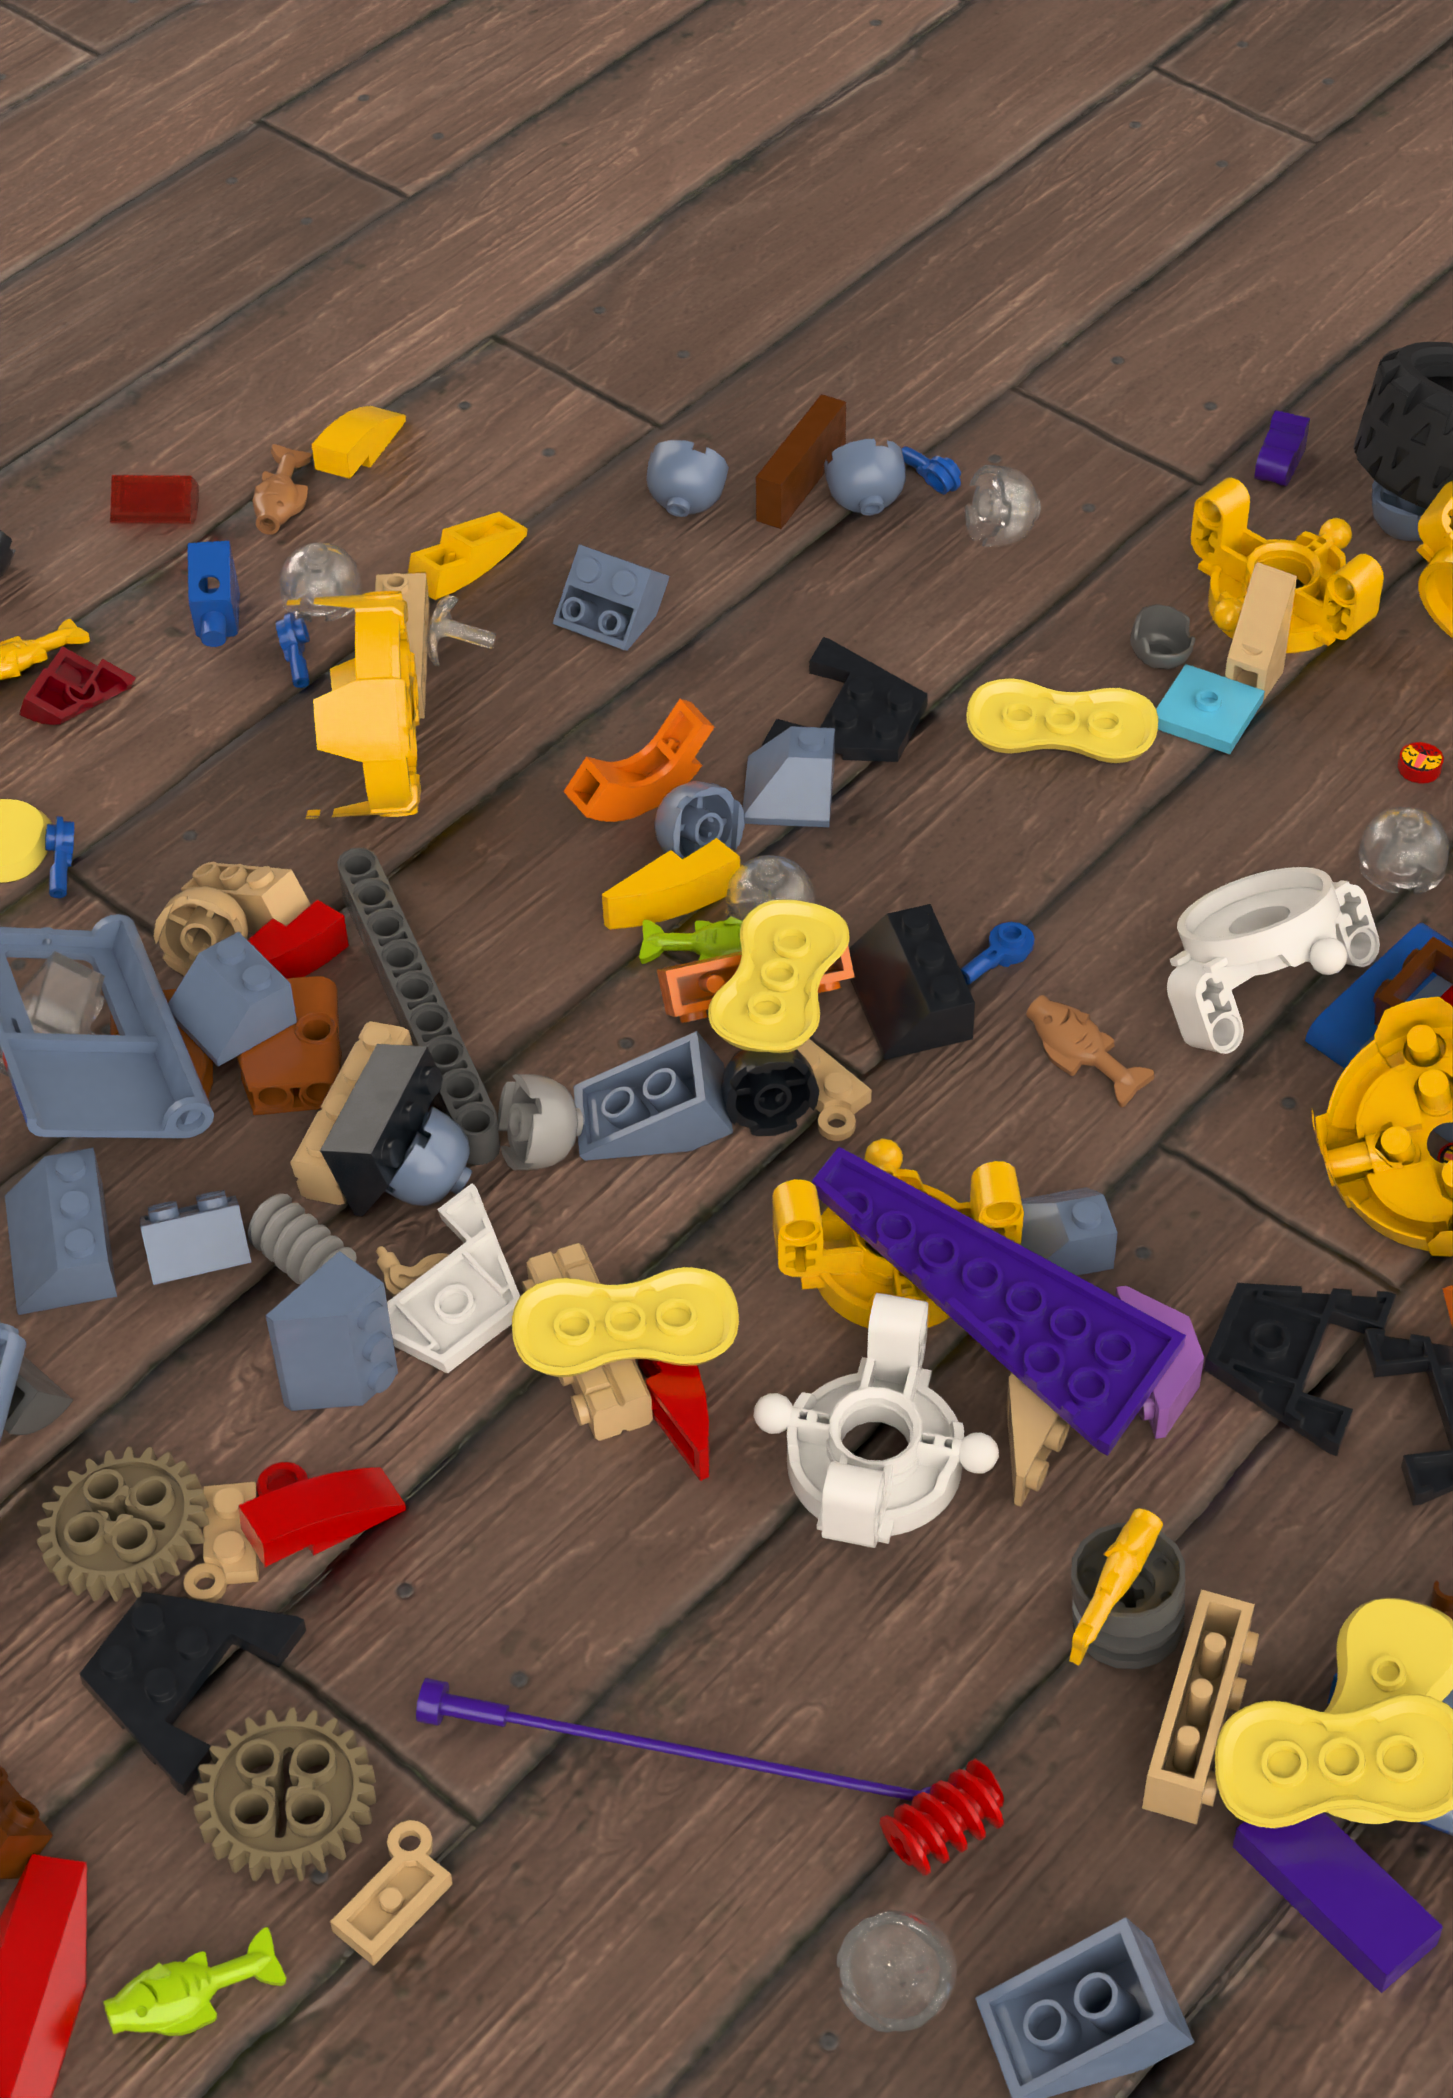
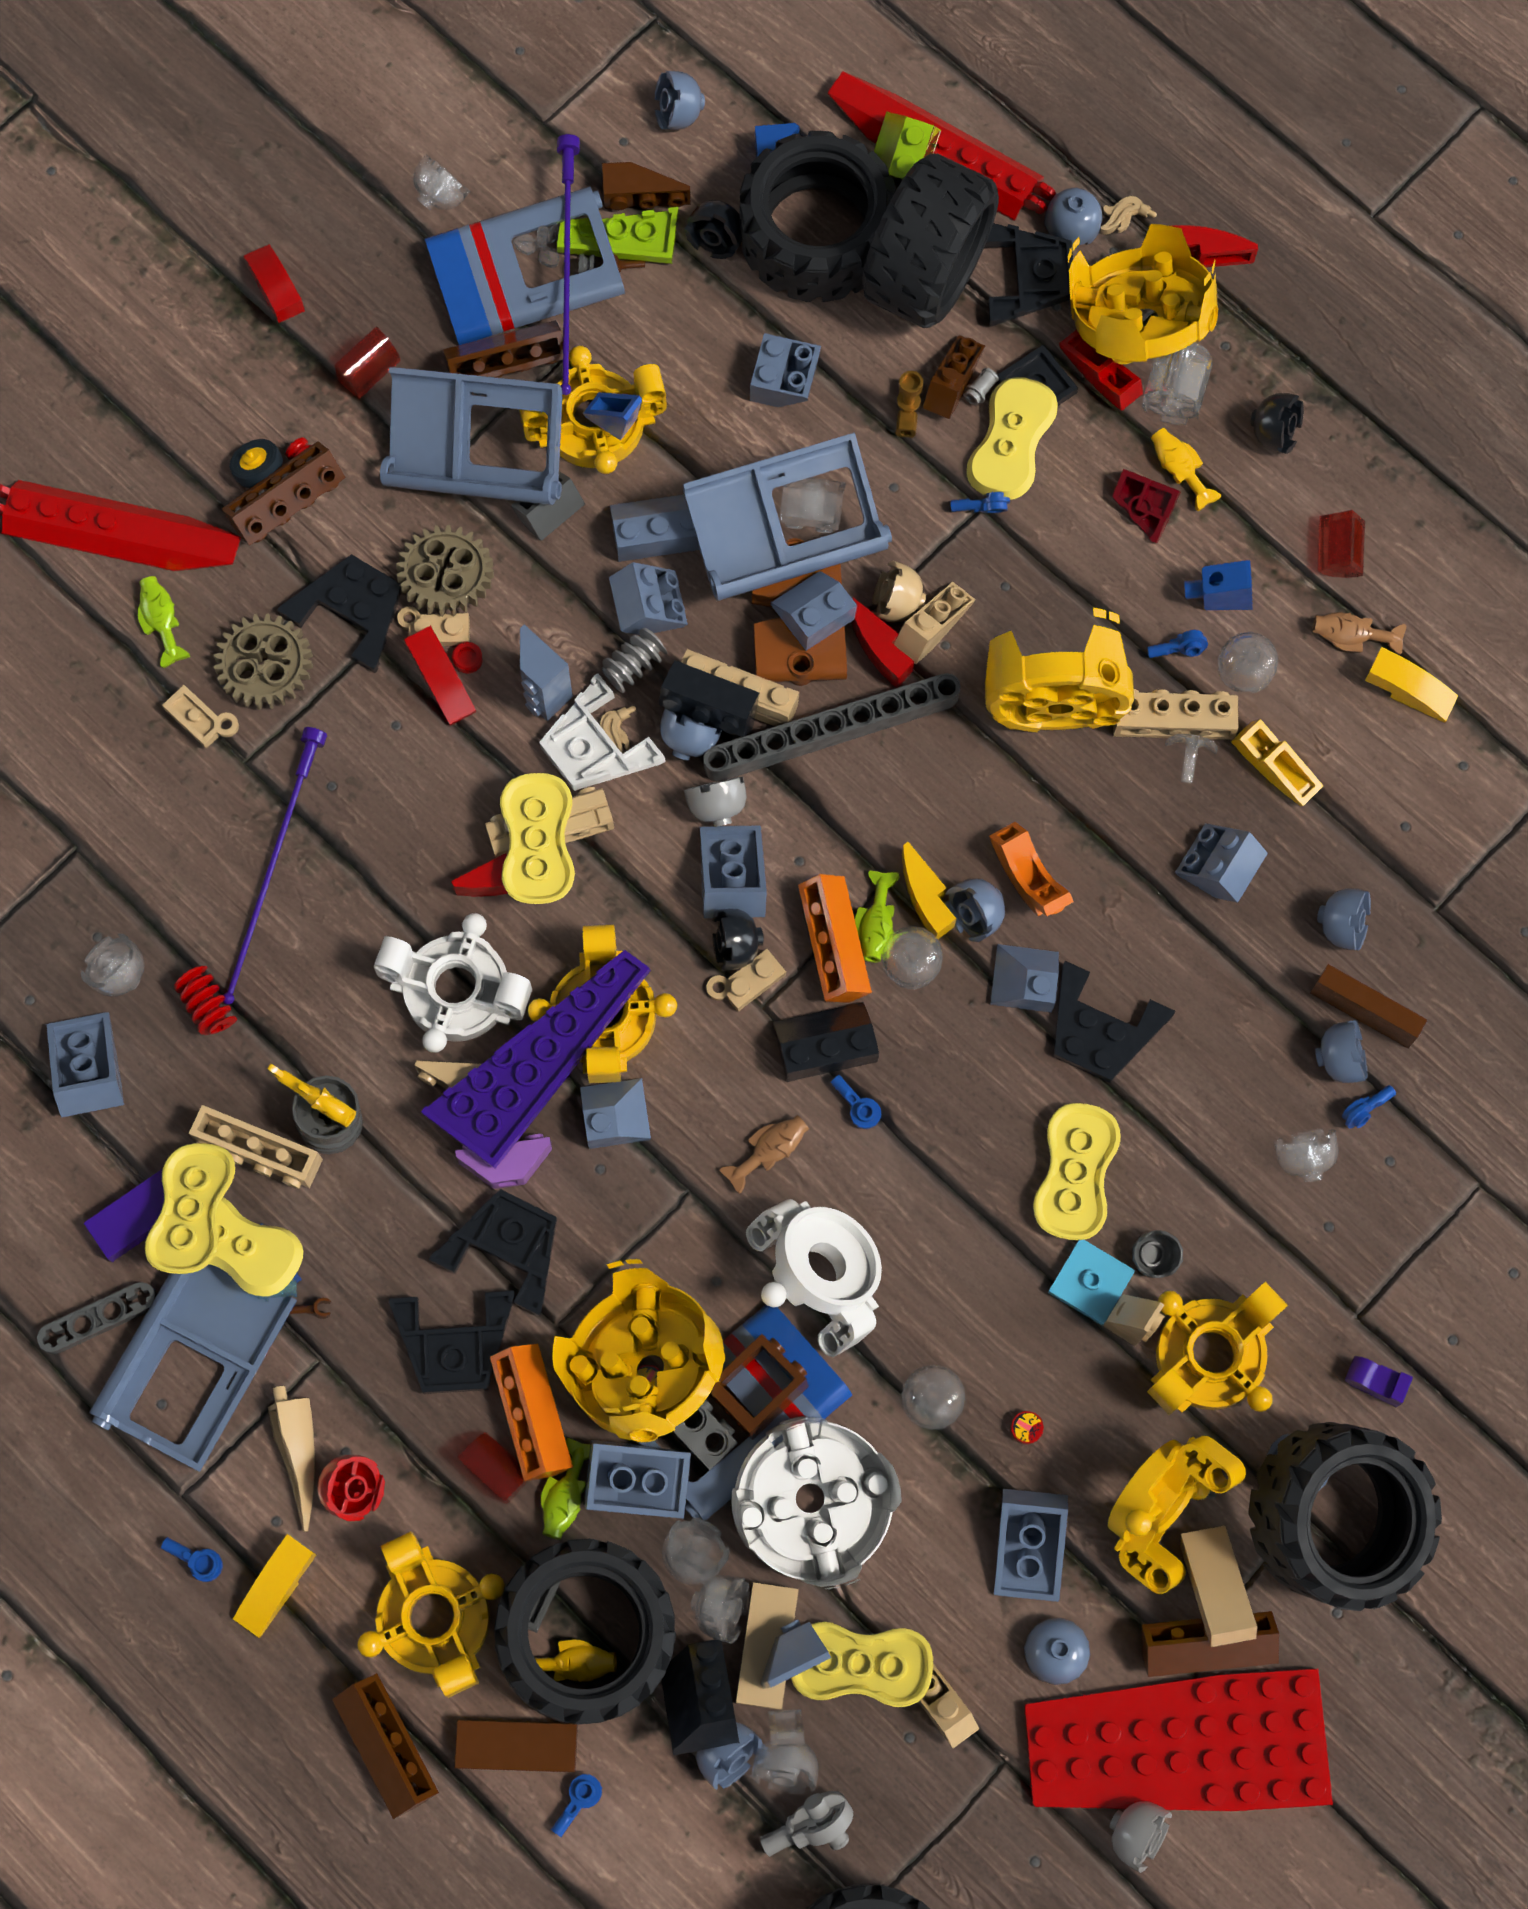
camera: 90 degrees right, 25 degrees up
(774, 992) = (825, 950): light yellow plate -> none

